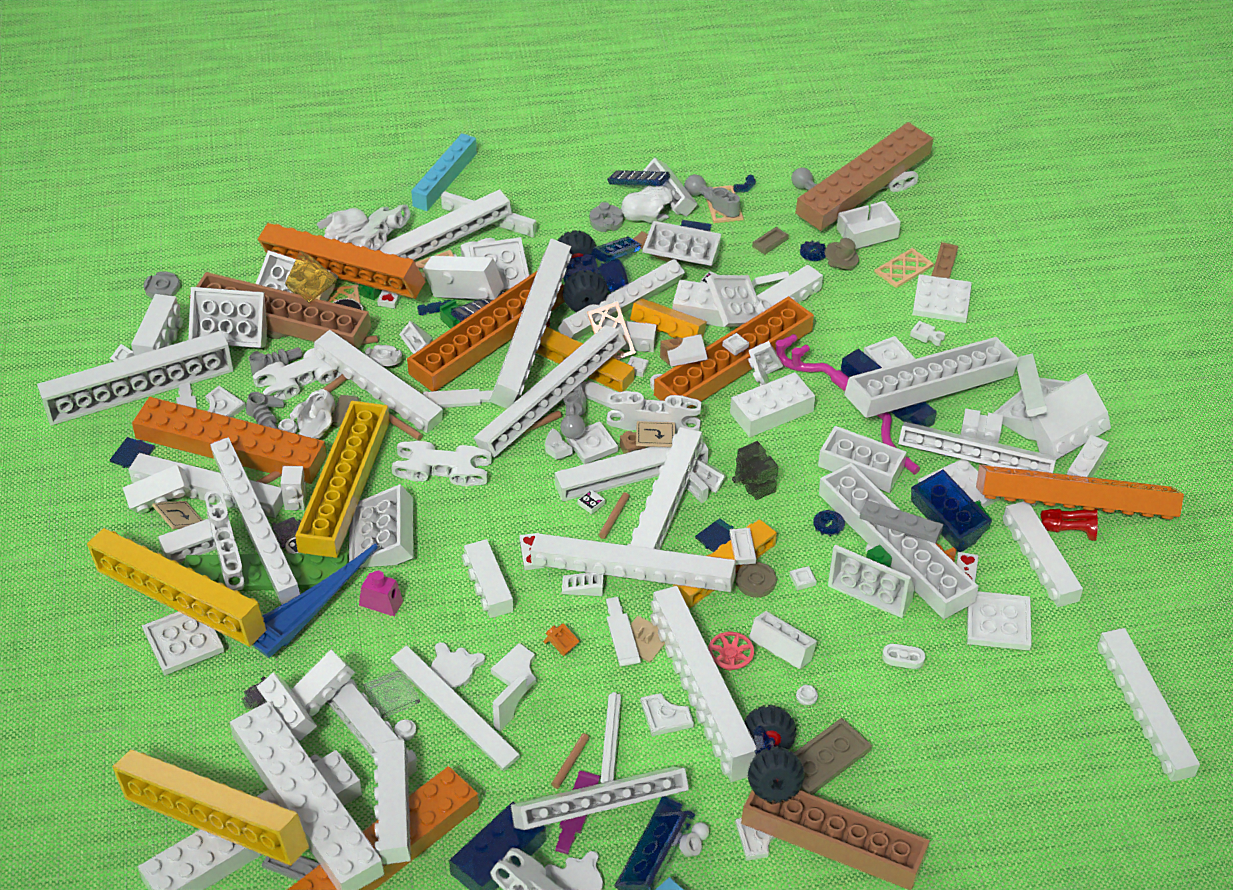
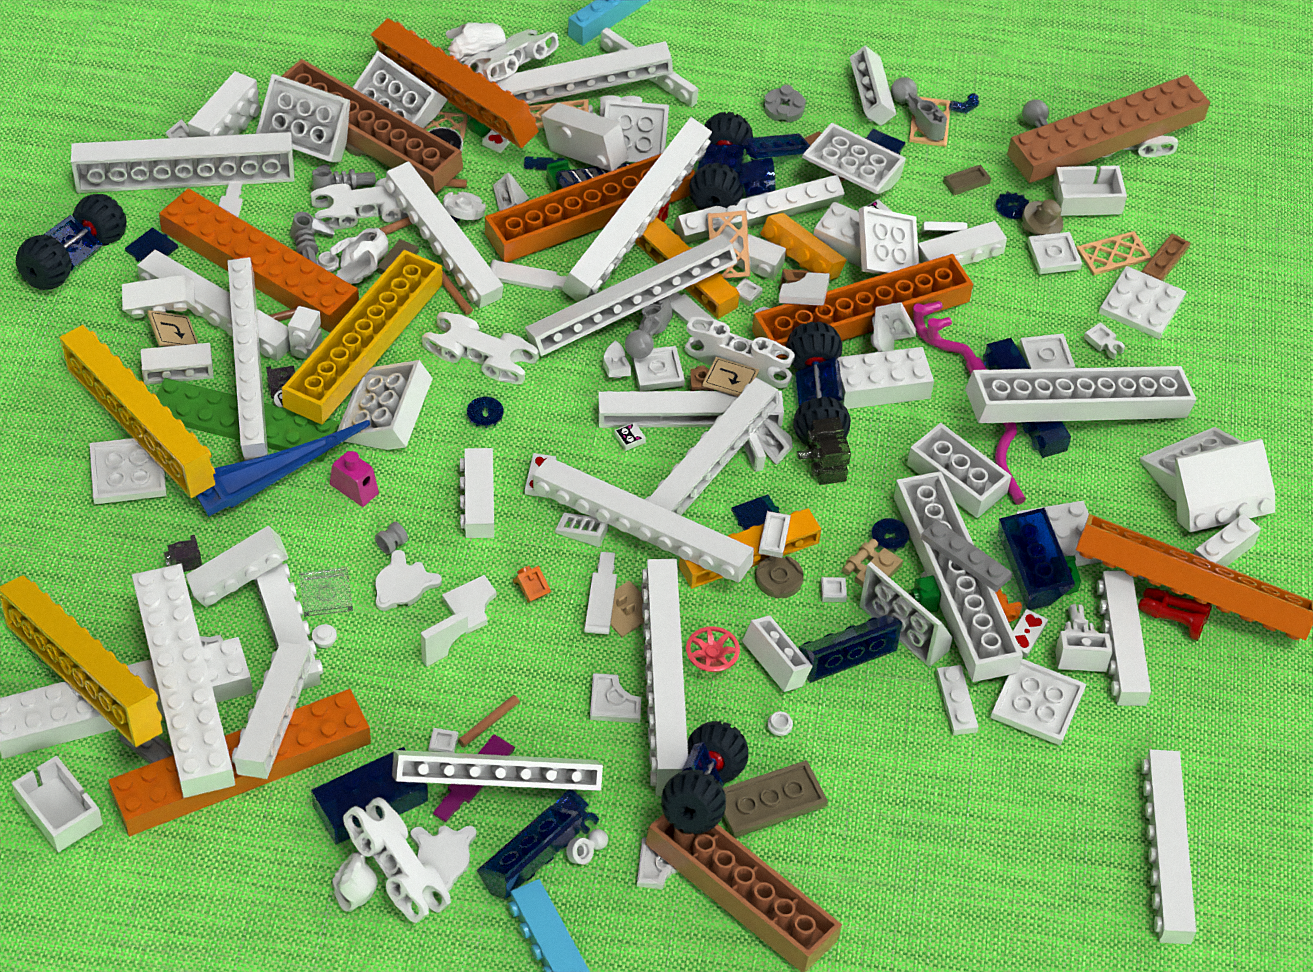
camera: 15 degrees right, 5 degrees up
(52, 480) = (50, 257): none -> black plate
(162, 283) = (253, 61): light grey tile -> none
(224, 402) = (269, 216): white tile -> none
(224, 540) = (204, 373): white piece -> none
(287, 706) = (201, 575): white brick -> none
(308, 278) = (409, 95): clear yellow slope -> none
(430, 634) = (392, 537): none -> light grey wheel
(455, 708) = (386, 627): white tile -> none
(471, 507) = (493, 407): none -> clear blue gear
(539, 787) = (443, 741): none -> white tile
(544, 420) = (614, 328): nougat bar -> none
(611, 736) = (542, 708): white axle -> none
(613, 516) = (648, 459): nougat bar -> none
(646, 178) = (839, 65): tile -> none
(647, 204) = (835, 100): white hair -> none
(723, 416) = (818, 378): none -> black plate
(735, 344) = (865, 295): white tile -> none
(761, 306) = (917, 257): white plate -> none
(824, 558) = (884, 560): none -> tan plate
(839, 616) = (852, 646): none -> slope
(861, 278) = (1054, 253): none -> white plate
(903, 656) = (910, 711): white plate -> none
(935, 637) = (957, 700): none -> white plate
(974, 449) = (1098, 494): white brick -> none
(982, 426) = (1119, 469): white brick -> none
(1013, 568) = (1081, 645): none -> white brick
(1031, 385) = (1191, 435): white tile -> none

